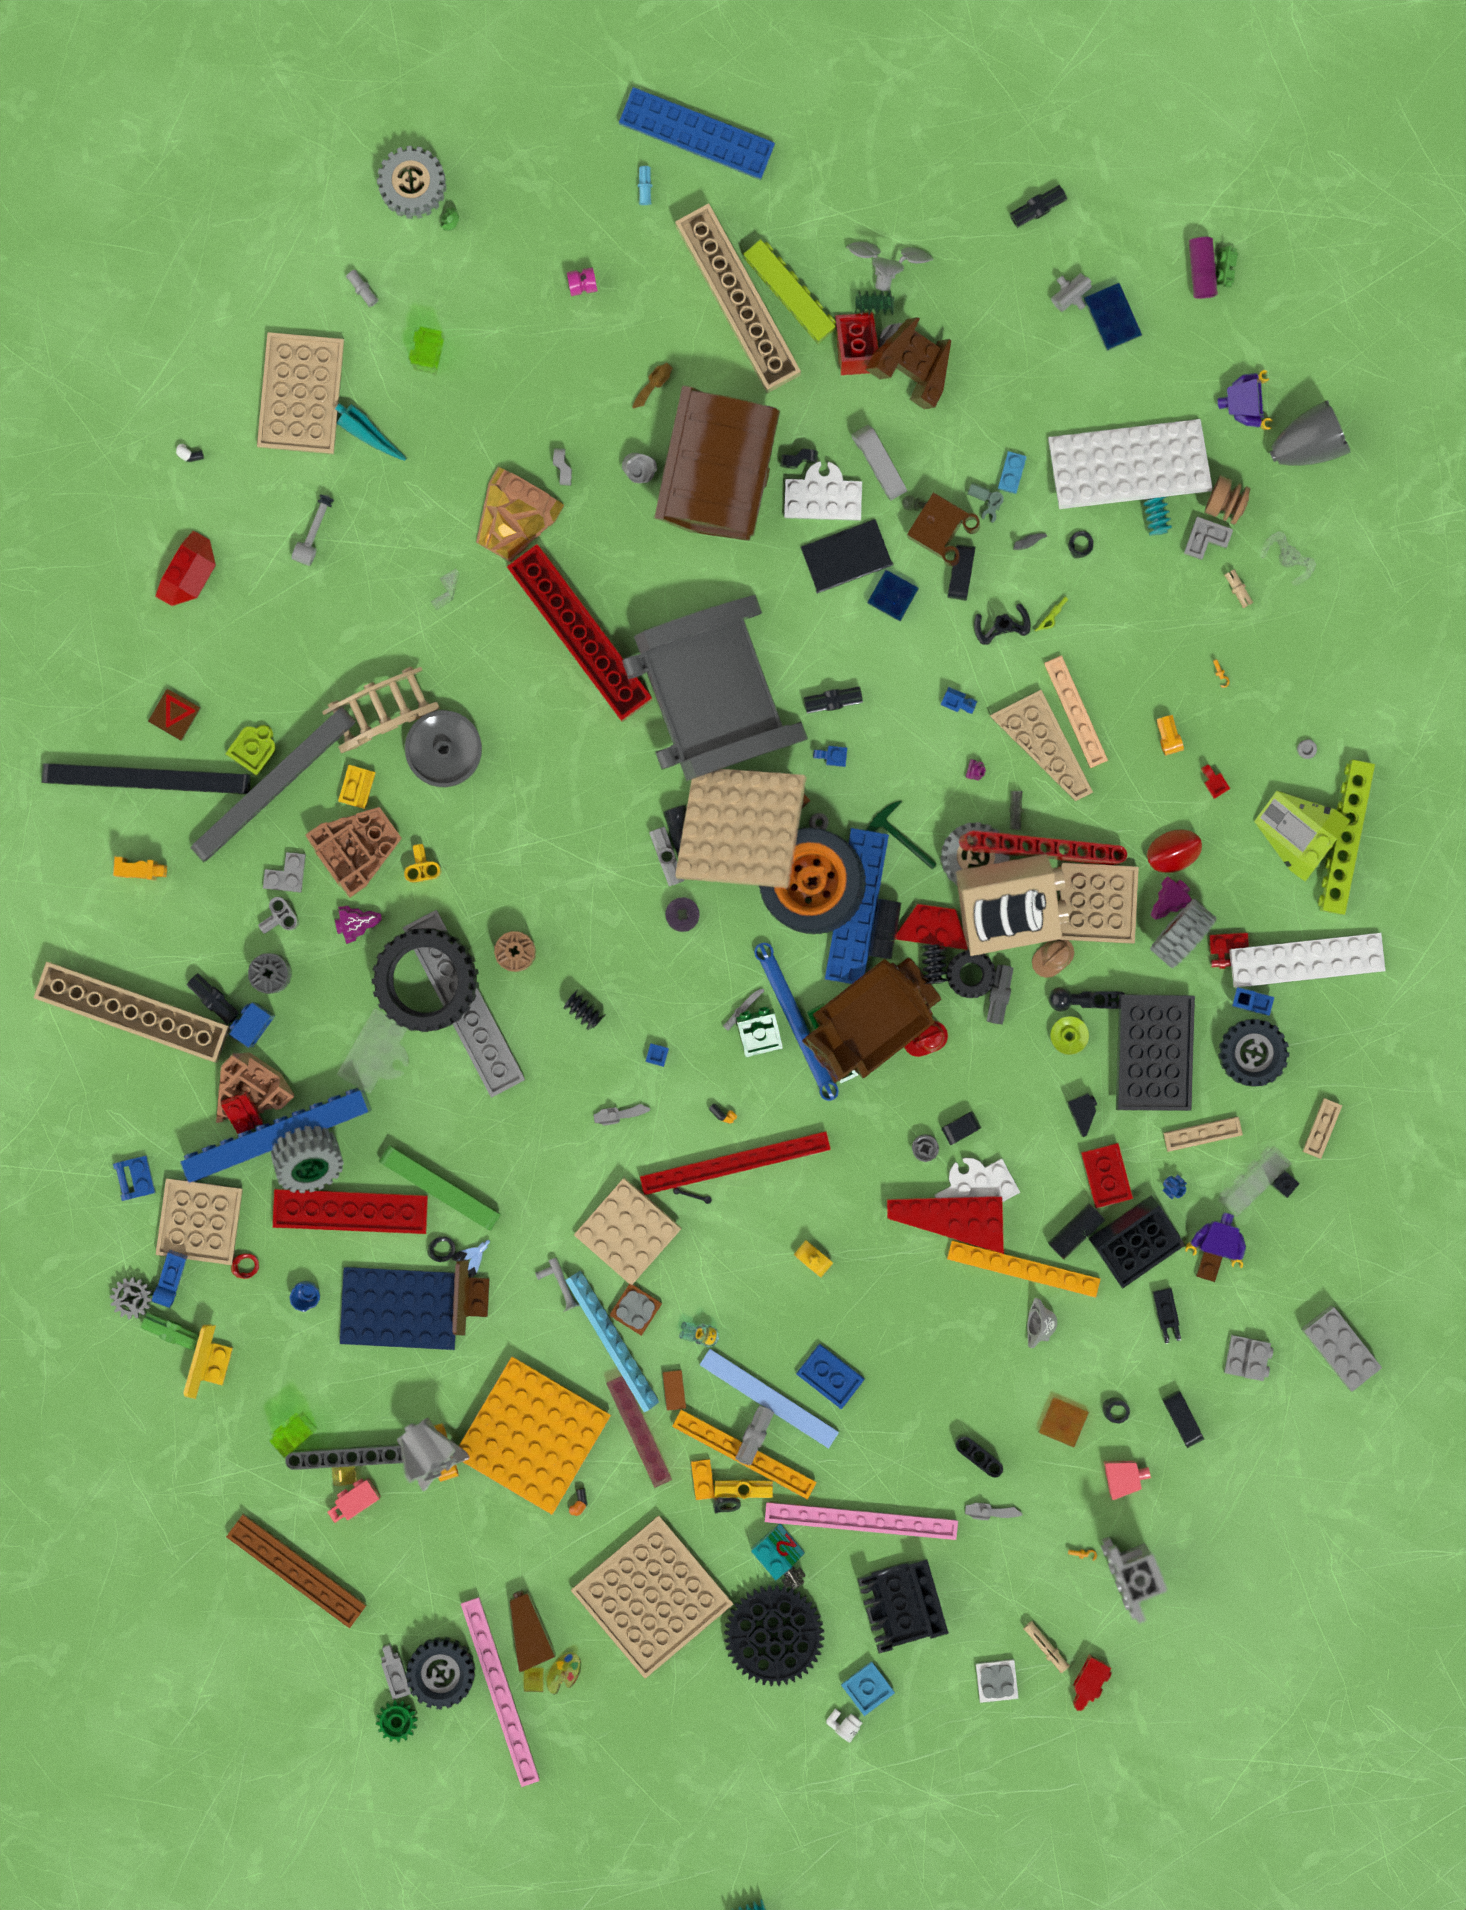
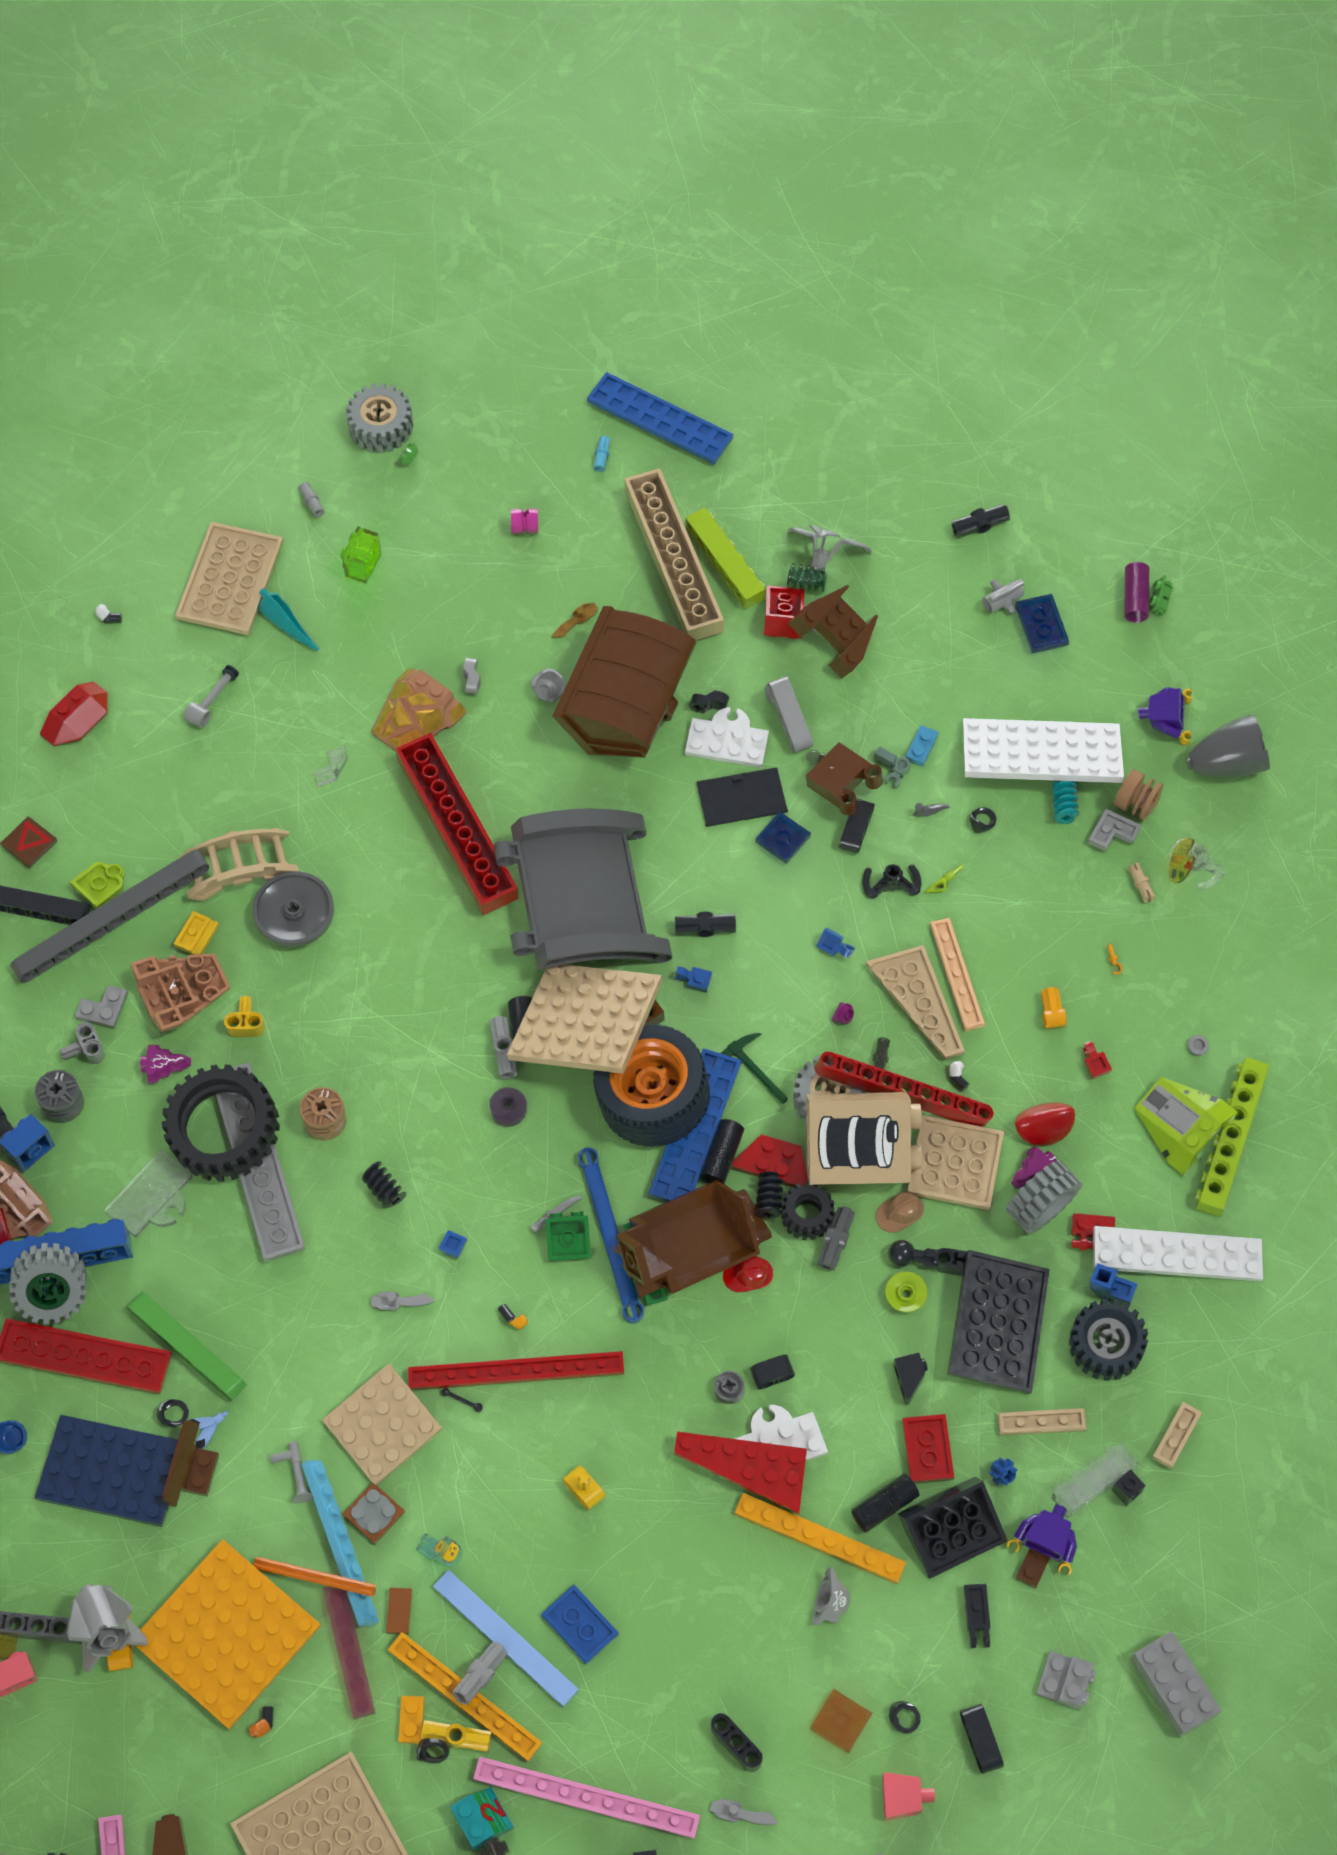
camera: 10 degrees right, 25 degrees down
(597, 1376) = (315, 1576): none -> orange axle
(1087, 815) = (955, 1075): none -> arm
(1273, 567) = (1181, 863): none -> clear yellow piece

